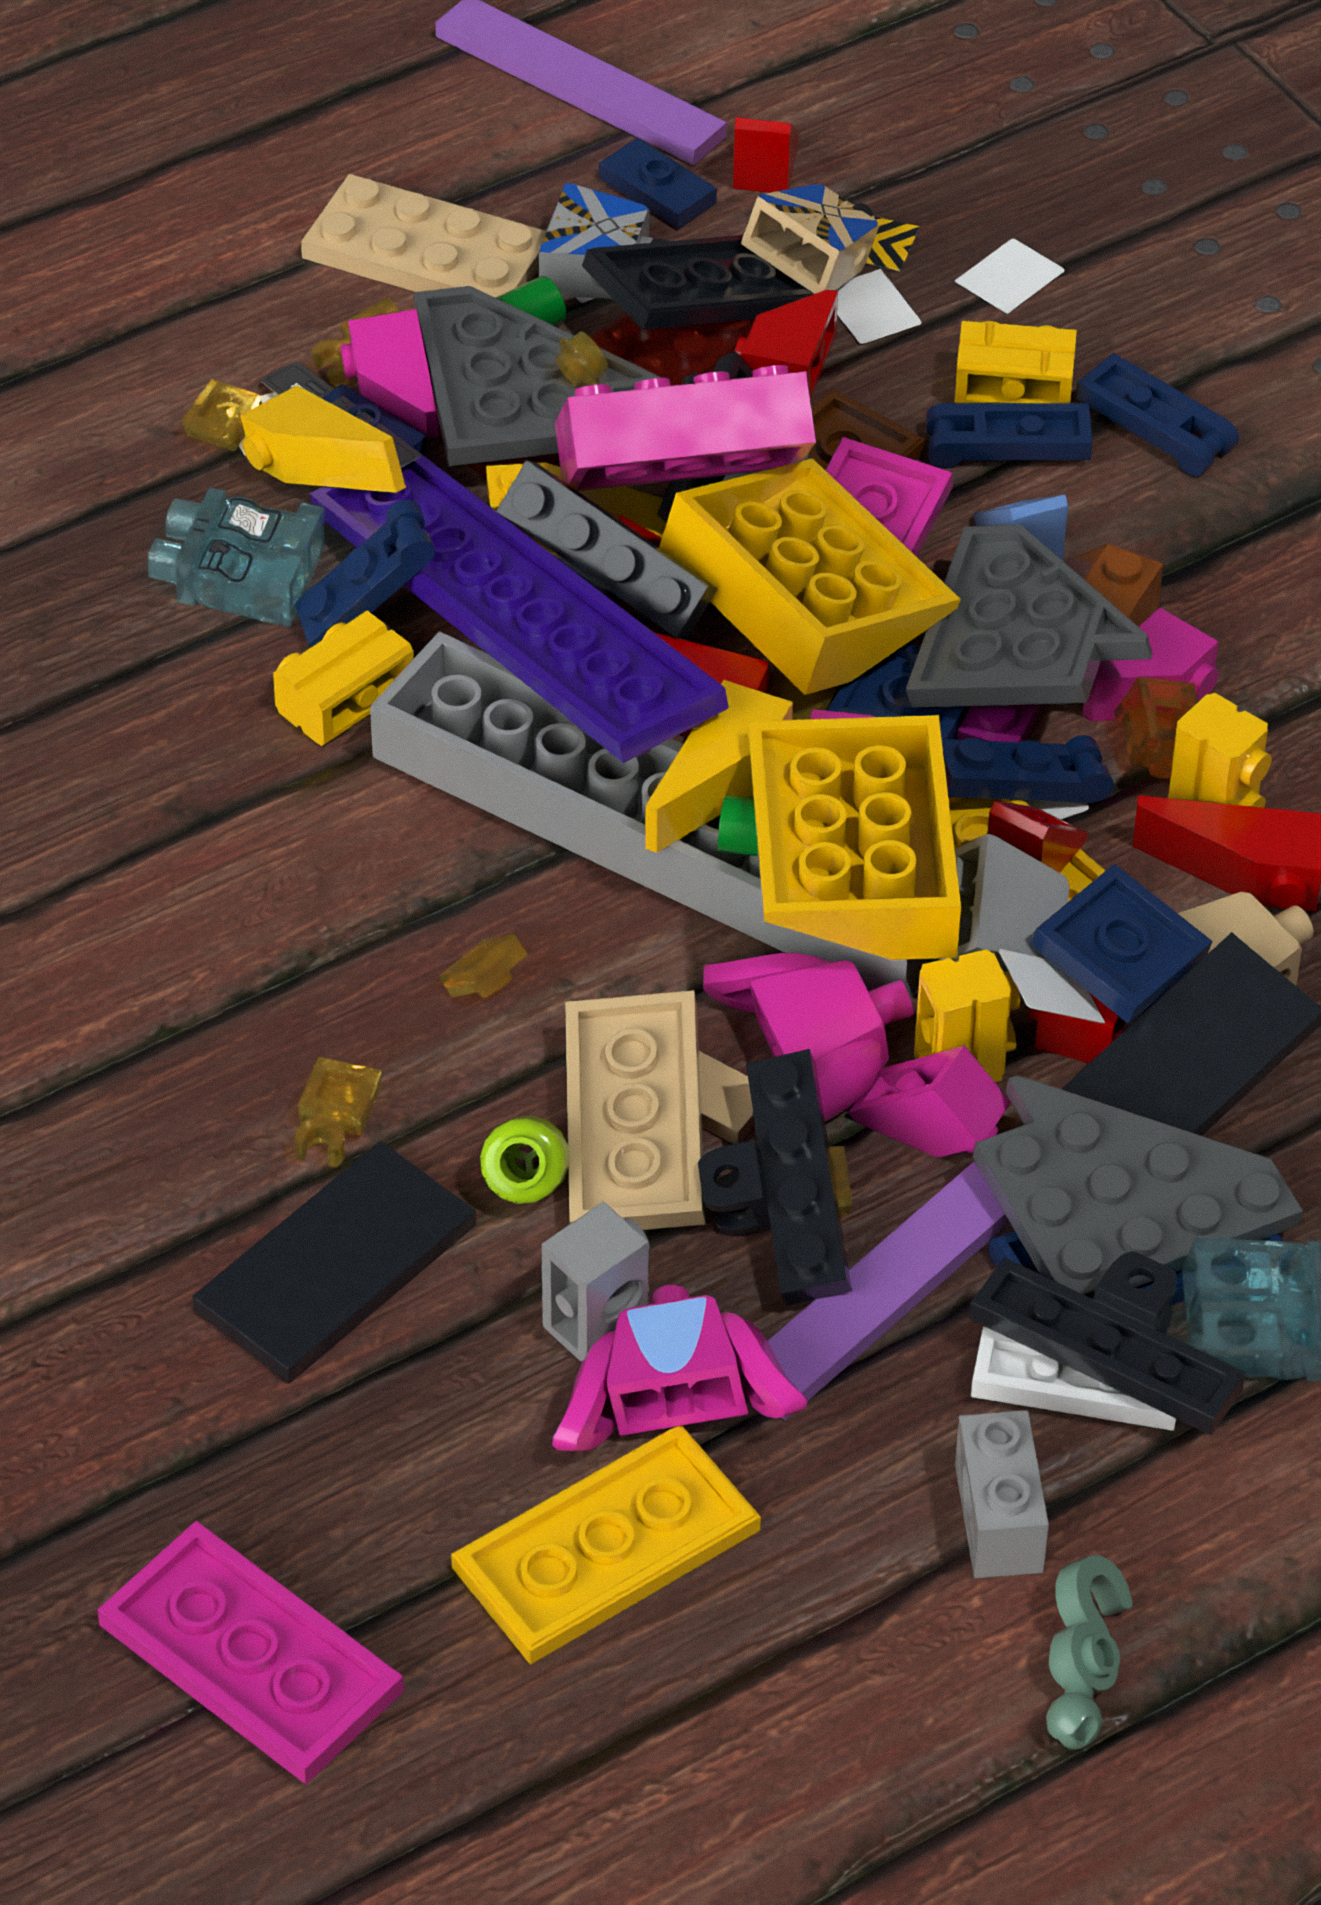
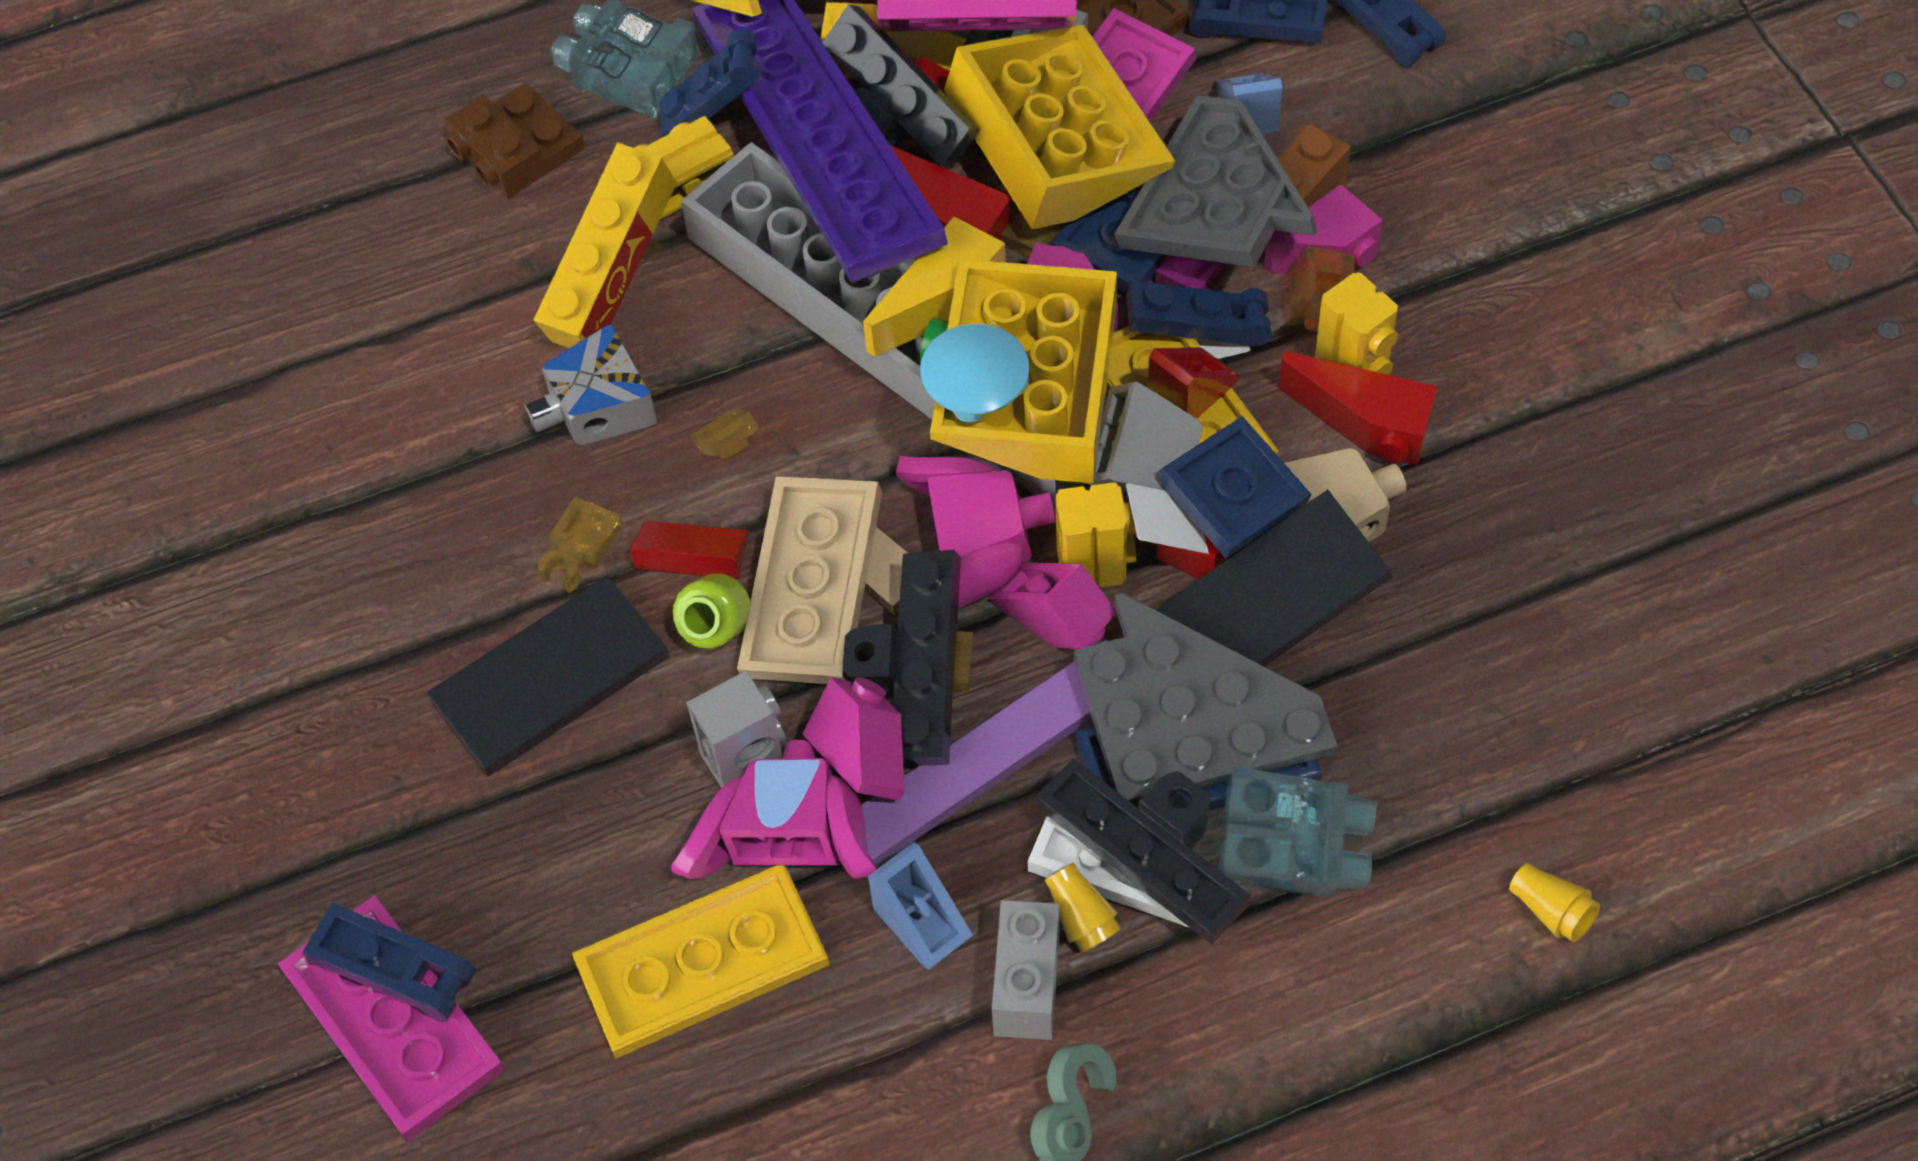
camera: 15 degrees right, 10 degrees up
(120, 667) = (512, 139): none -> reddish brown plate
(242, 1581) = (388, 961): none -> dark blue plate
(288, 774) = (606, 246): none -> yellow brick
(309, 938) = (593, 391): none -> light grey torso
(468, 1102) = (689, 549): none -> red slope
(743, 1266) = (860, 736): none -> dark pink slope
(802, 837) = (974, 370): none -> medium azure dish
(853, 1445) = (917, 906): none -> medium blue slope
(1056, 1425) = (1083, 910): none -> yellow cone

